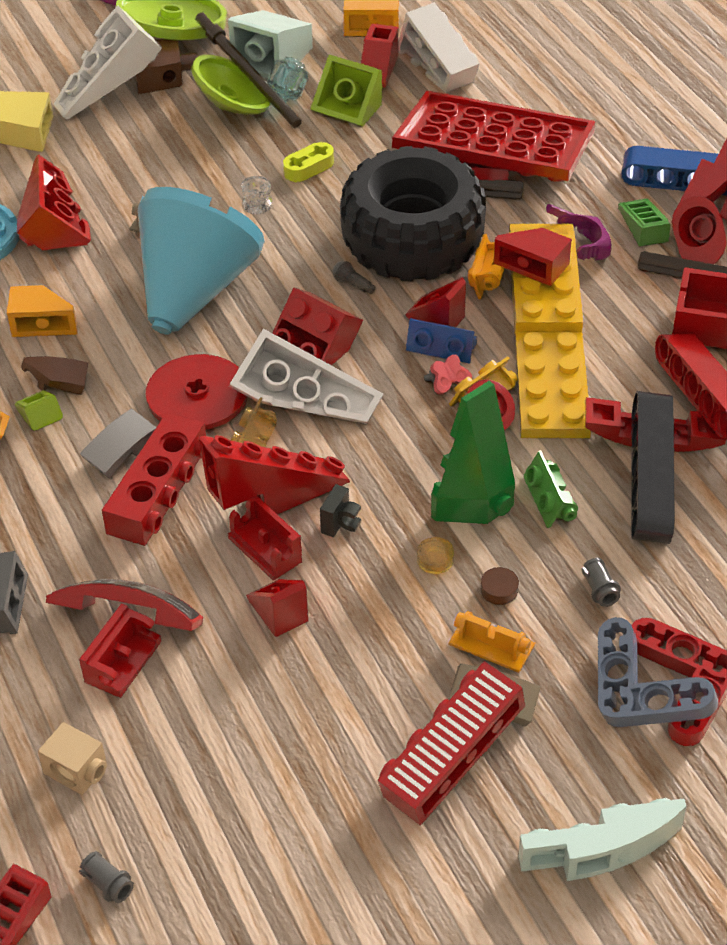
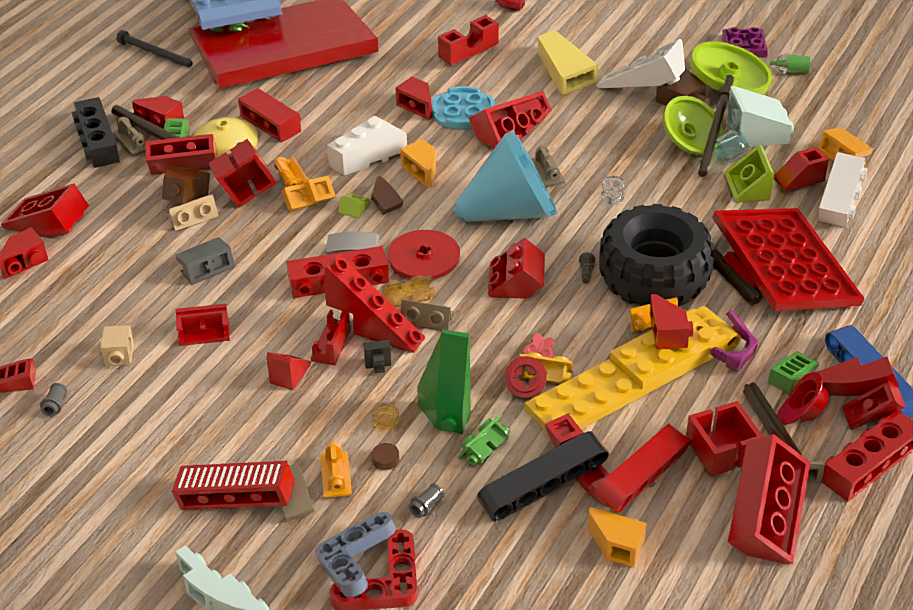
camera: 55 degrees right, 5 degrees down
(170, 609) = (245, 322): red slope -> none
(302, 382) = (464, 285): white wedge -> none
(308, 162) = (671, 195): neon yellow beam -> none
(311, 435) = (427, 314): none -> dark tan hinge
(440, 340) = (568, 330): blue hinge -> none
(441, 305) = (595, 317): red slope -> none

